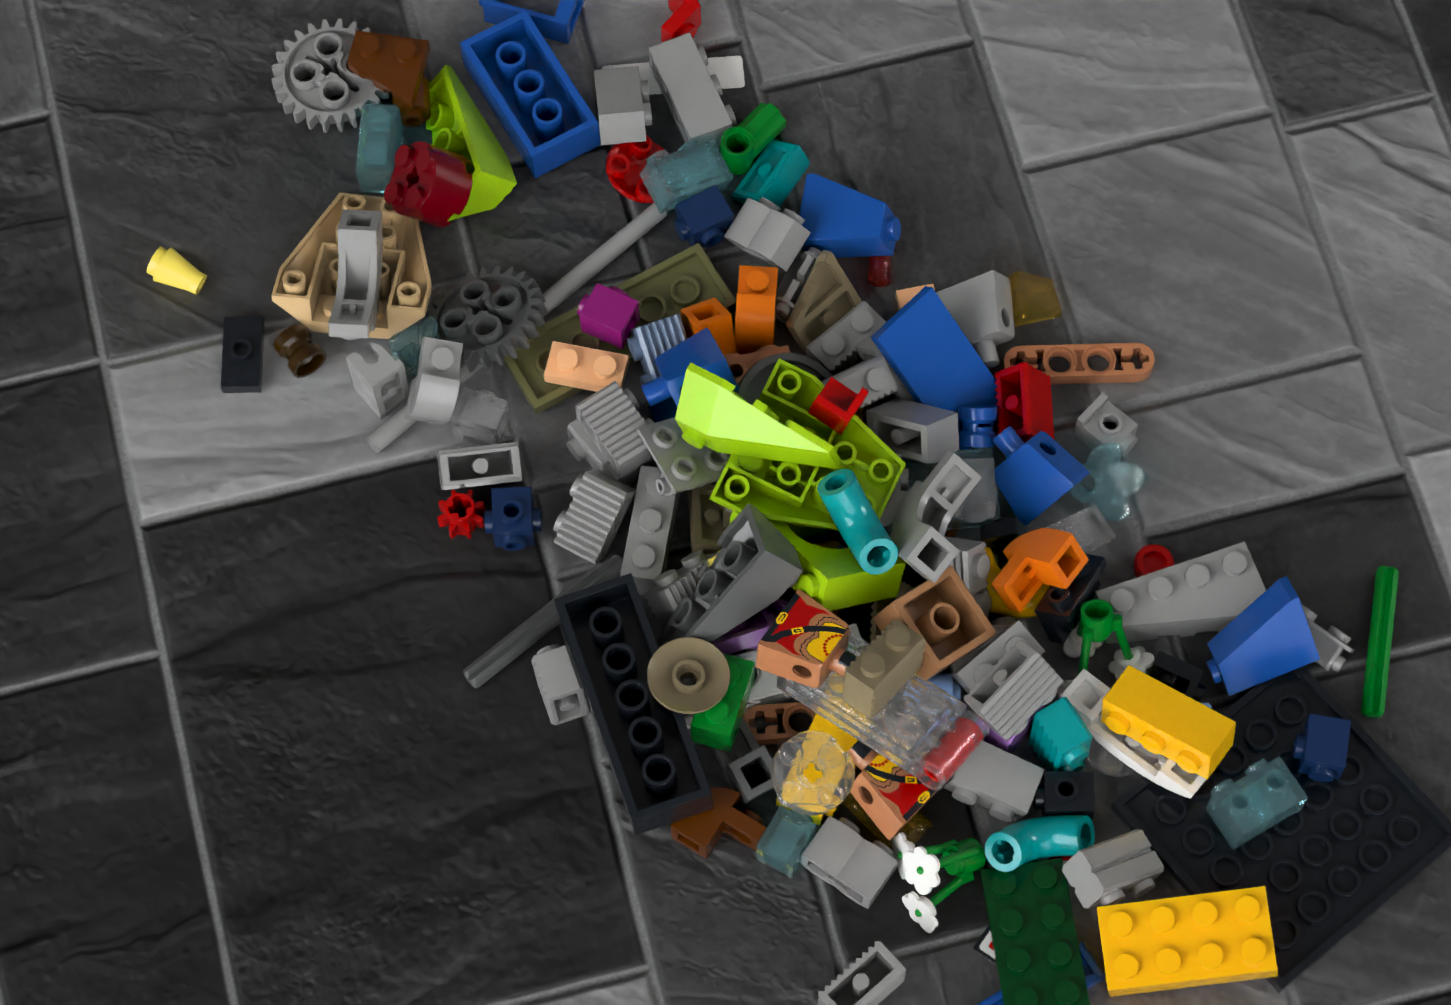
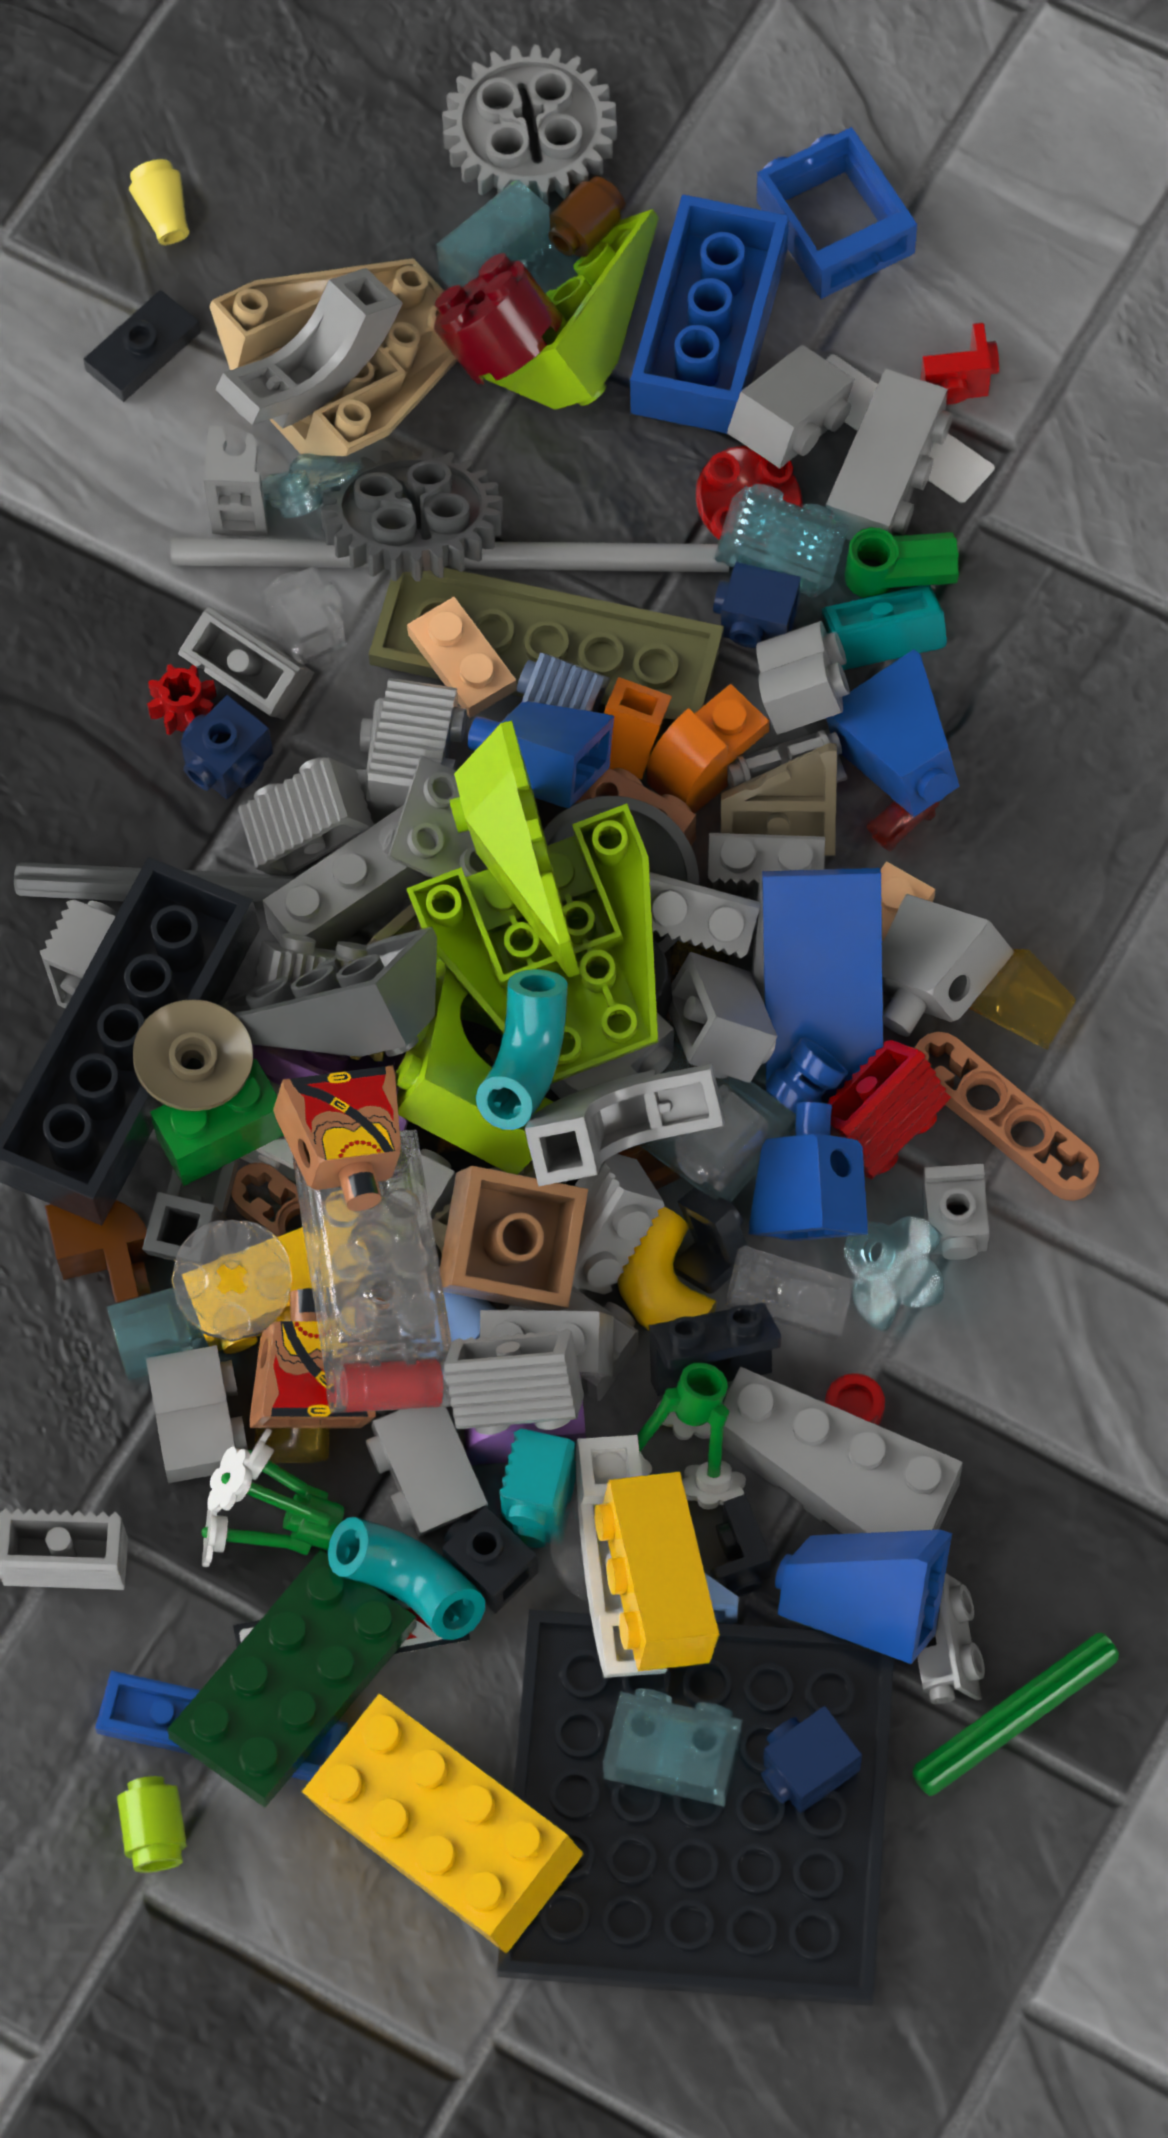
camera: 45 degrees right, 0 degrees up
(298, 348) = (194, 396): dark brown wheel -> none
(390, 63) = (591, 159): reddish brown wing -> none
(437, 385) = (282, 533): light grey brick -> none
(608, 314) = (539, 616): magenta brick -> none
(837, 405) = (636, 907): red panel -> none
(883, 668) = (391, 1227): dark tan brick -> none
(1038, 559) = (699, 1271): orange brick -> none
(1113, 869) = (448, 1676): light grey brick -> none

